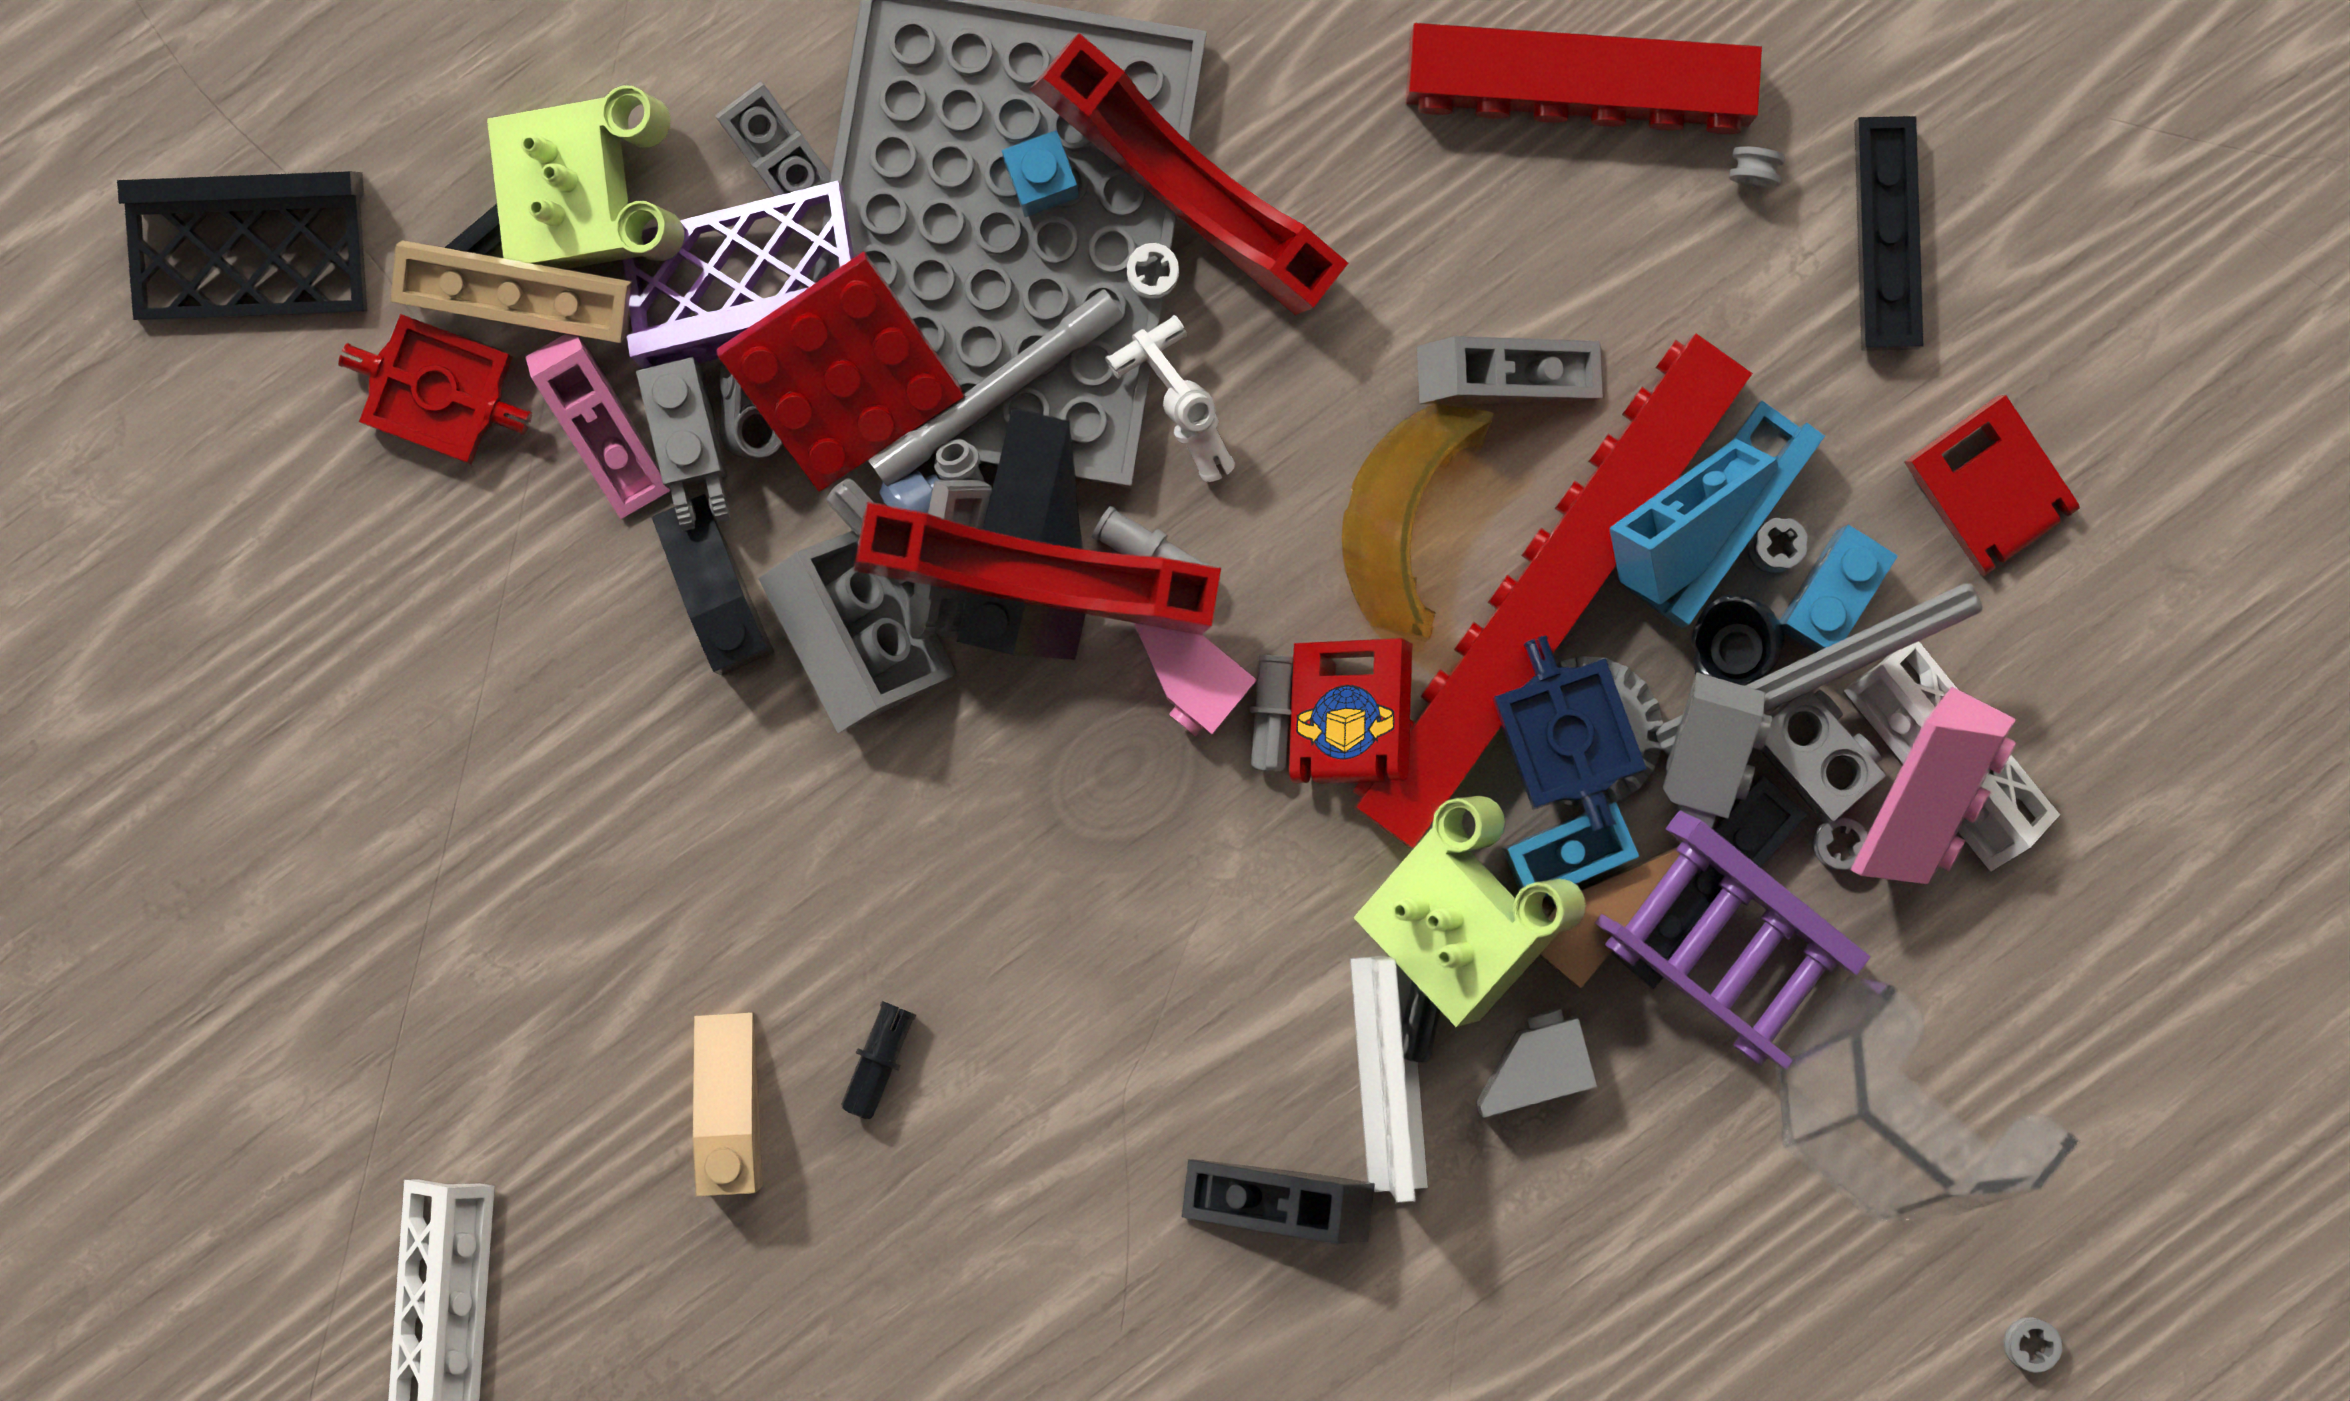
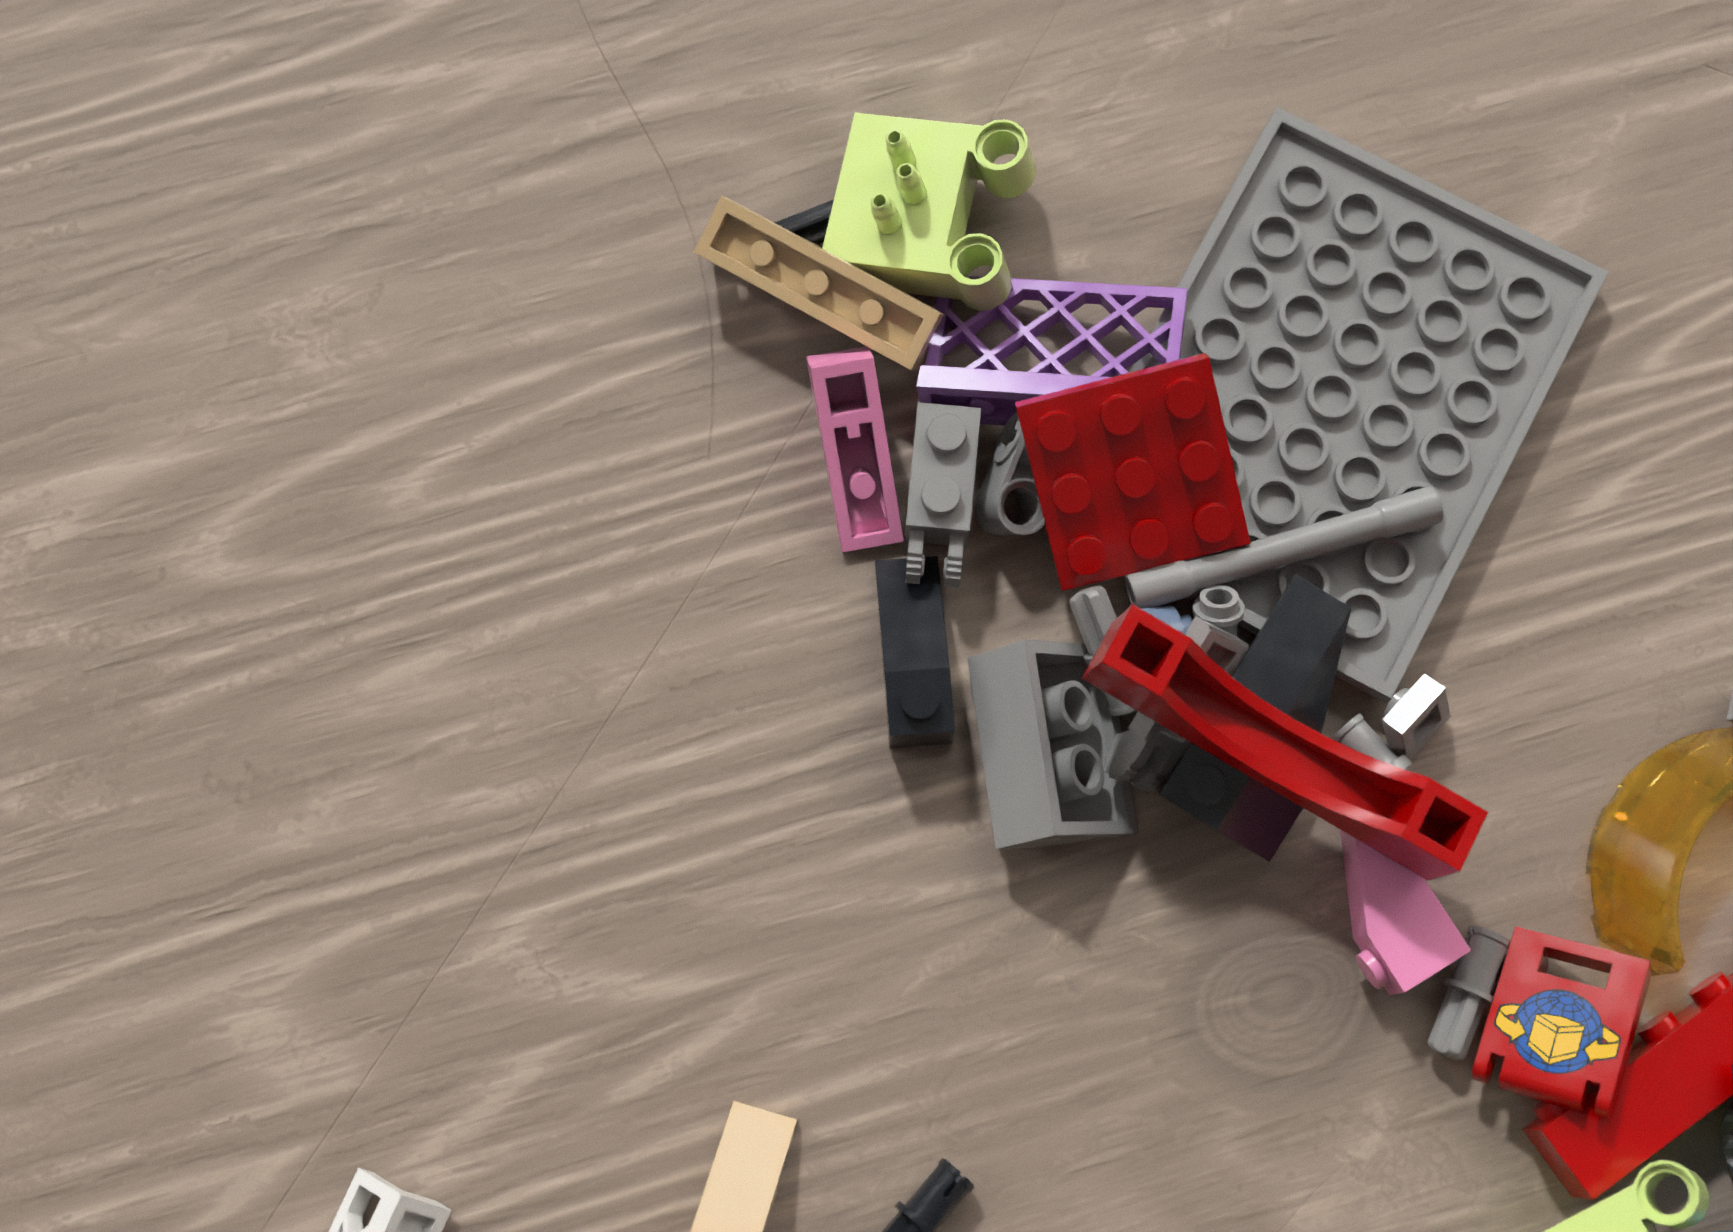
camera: 20 degrees right, 10 degrees down
(243, 193) = (585, 107): black fence -> none
(435, 389) = (703, 358): red plate -> none
(772, 142) = (1125, 234): light grey slope -> none
(1040, 173) = (1403, 347): dark azure brick -> none
(1123, 124) = (1499, 306): red arch -> none
(1140, 257) = (1505, 479): white bush -> none
(1157, 494) = (1415, 716): none -> light grey plate
(1184, 401) = (1484, 630): white pin -> none

